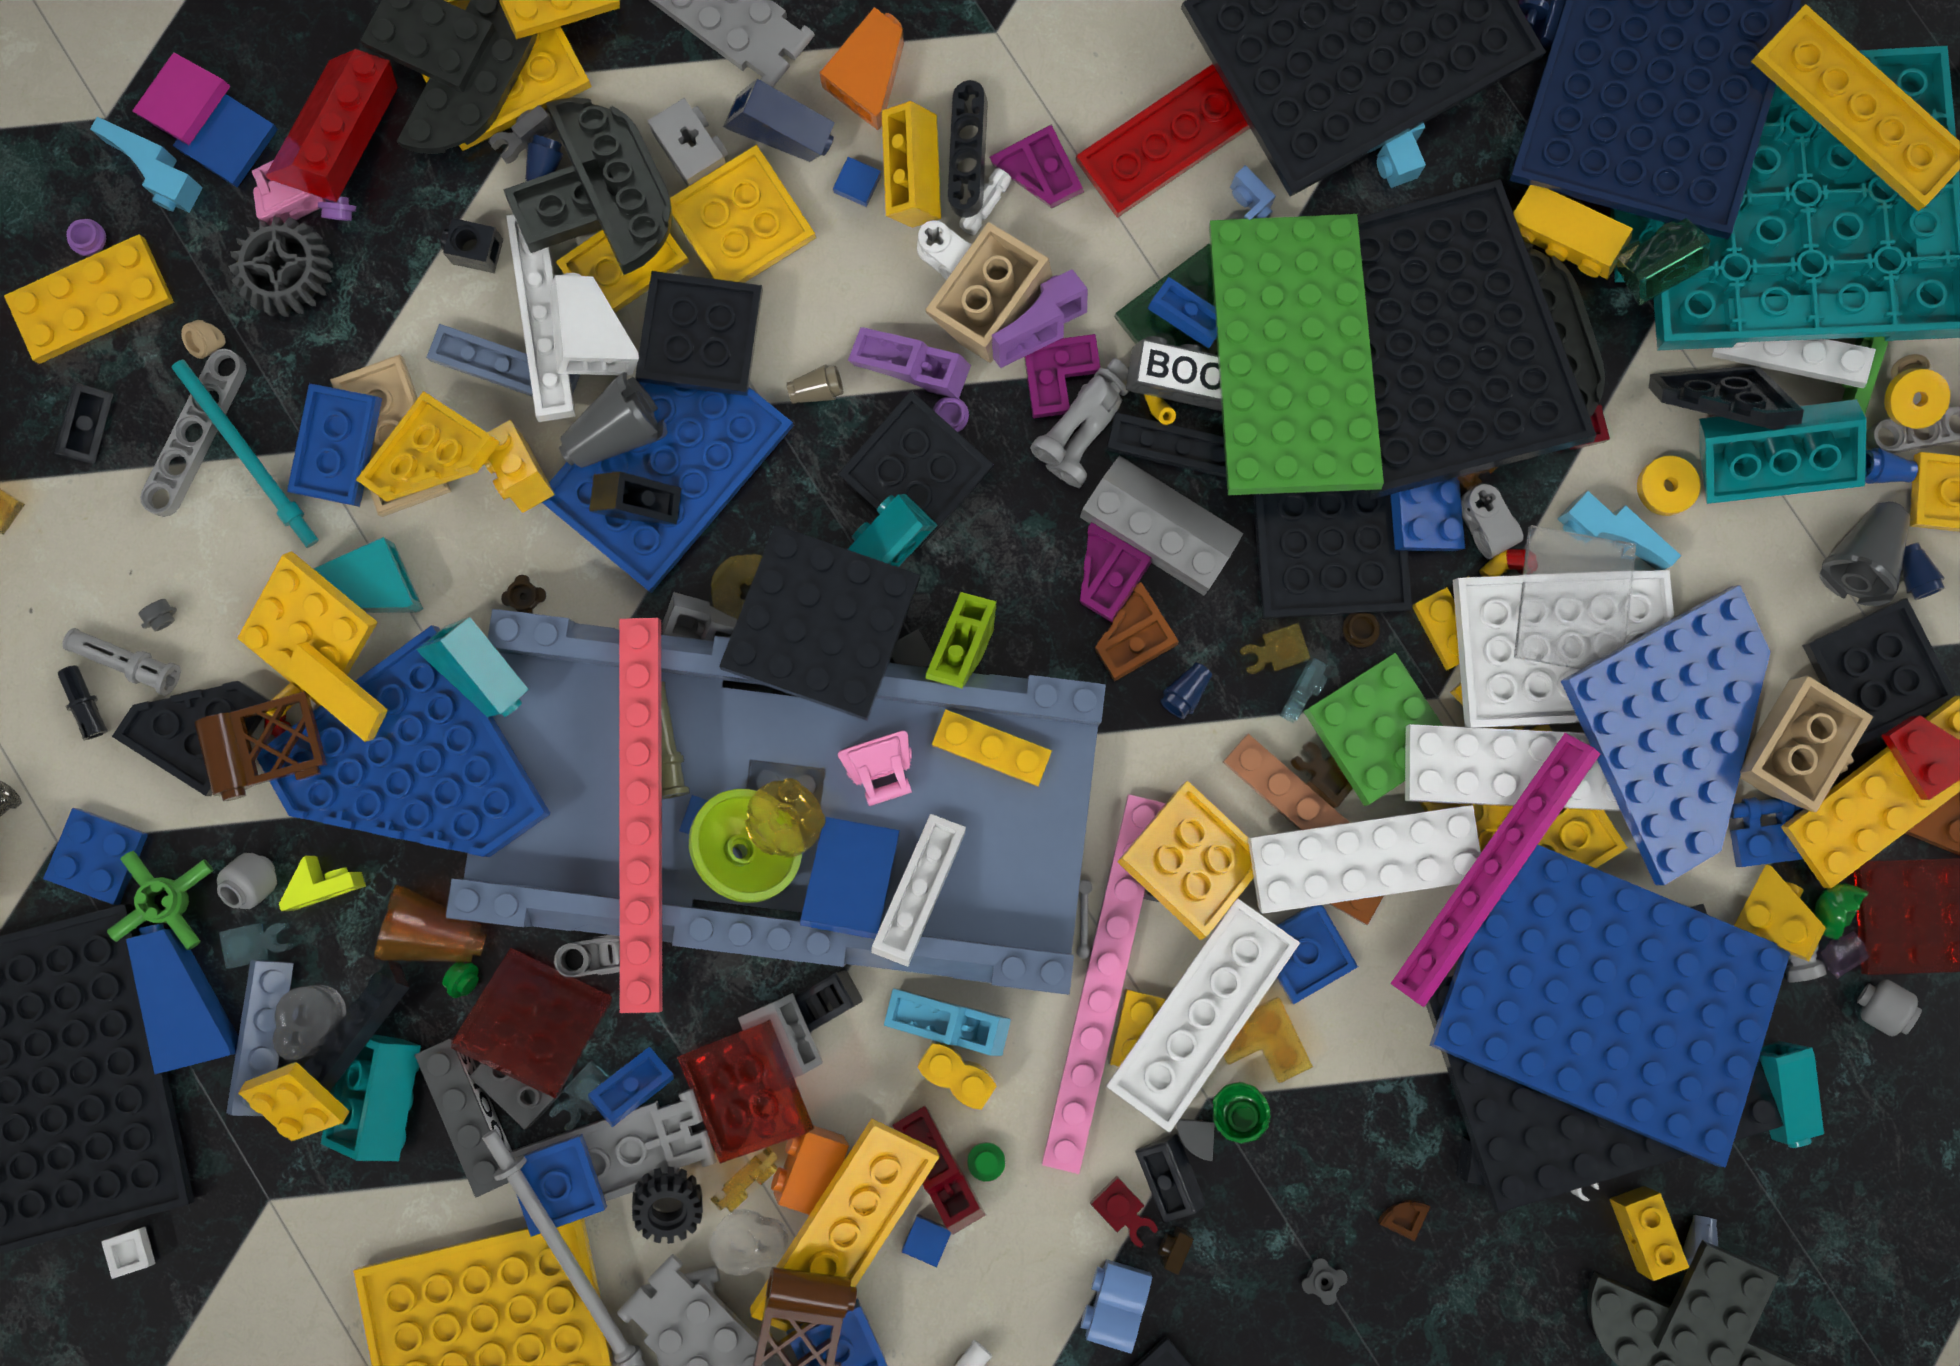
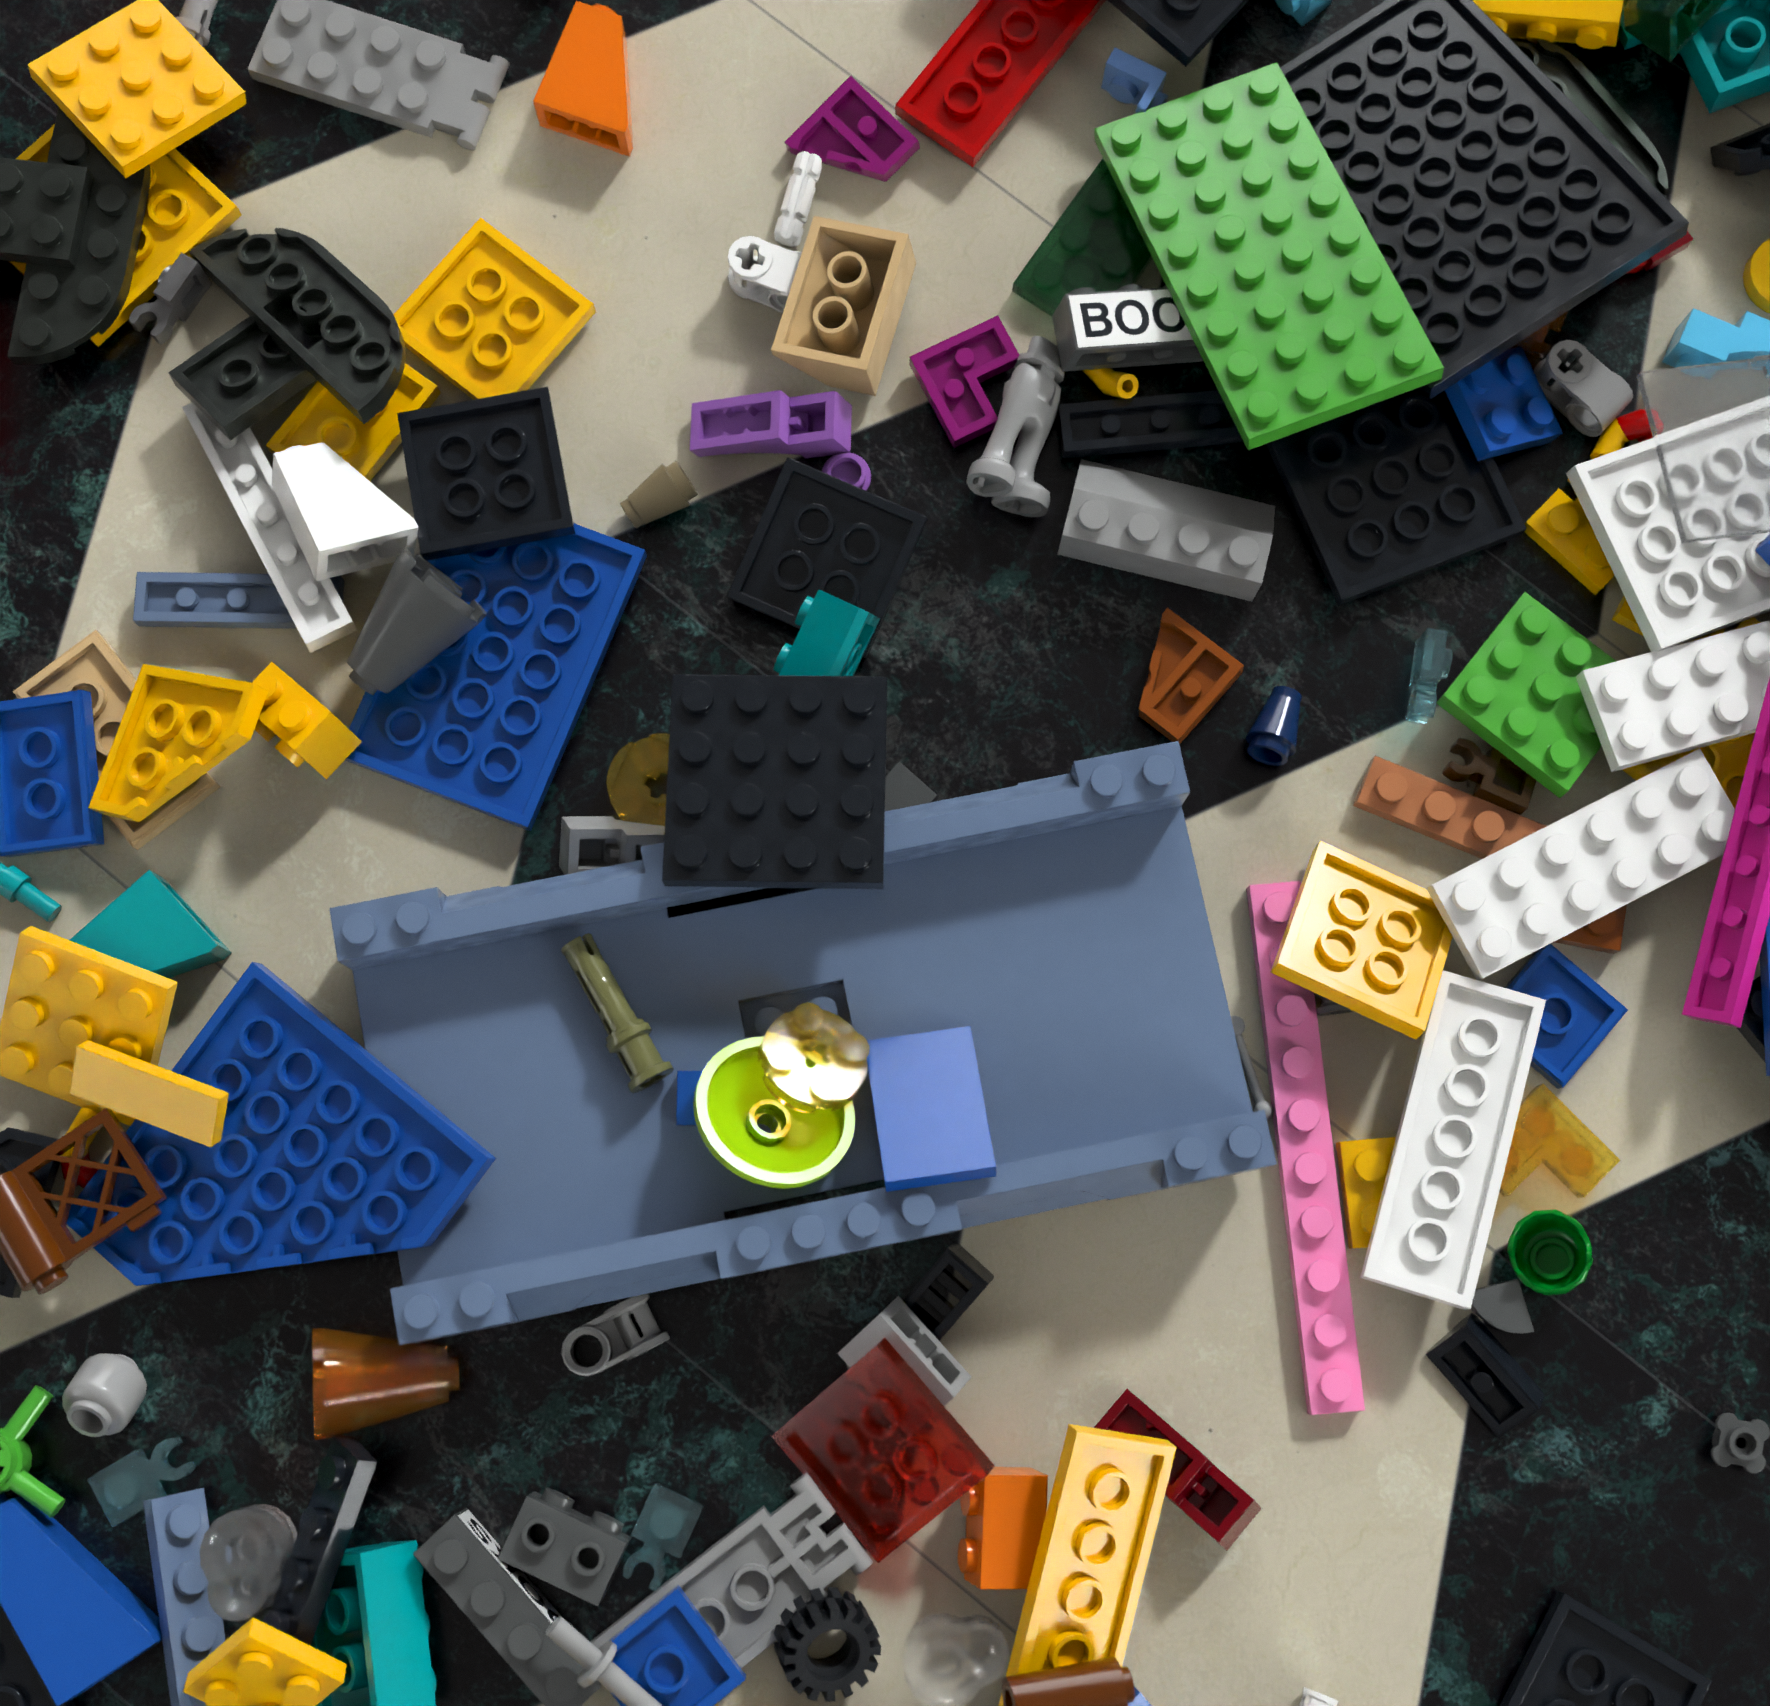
camera: 15 degrees left, 5 degrees down
(310, 887) = (194, 1376): neon yellow slope -> none
(460, 979) = (441, 1430): green plate -> none
(474, 667) = (330, 995): teal slope -> none
(482, 256) = (164, 473): black brick -> none
(522, 585) = (356, 876): dark brown plate -> none
(532, 1023) = (559, 1456): clear red plate -> none
(542, 157) = (205, 318): dark blue cone -> none
(630, 1086) = (722, 1498): blue plate -> none
(634, 498) = (470, 710): black slope -> none
(640, 815) = (622, 1120): coral plate -> none
(678, 126) = (389, 242): light grey brick -> none
(736, 1185) = (914, 1581): clear yellow plate -> none
(779, 122) = (500, 179): dark blue slope -> none
(857, 181) = (625, 226): blue tile -> none
(878, 759) = (909, 942): bright pink piece -> none
(911, 164) = (688, 178): yellow brick -> none
(918, 890) = (1027, 1094): white plate -> none
(926, 1240) = (1193, 1572): blue tile -> none
(947, 1022) = (1118, 1265): medium azure slope -> none
(963, 641) = (967, 750): lime slope -> none
(966, 1079) = (1168, 1333): yellow brick -> none
(967, 148) = (754, 139): black beam -> none
(986, 1161) = (1235, 1436): green plate -> none
(991, 748) = (1054, 878): yellow plate -> none
(1060, 301) = (928, 321): medium lavender slope -> none
(1110, 572) = (1123, 608): magenta wing -> none
(1117, 1305) = (1481, 1572): medium blue brick -> none
(1121, 1208) = (1436, 1438): dark red plate -> none
(1175, 1249) = (1529, 1467): dark brown plate -> none
(1185, 312) = (1106, 249): blue plate -> none
(1282, 648) = (1378, 632): clear yellow plate -> none
(1361, 629) = (1469, 577): dark brown plate -> none

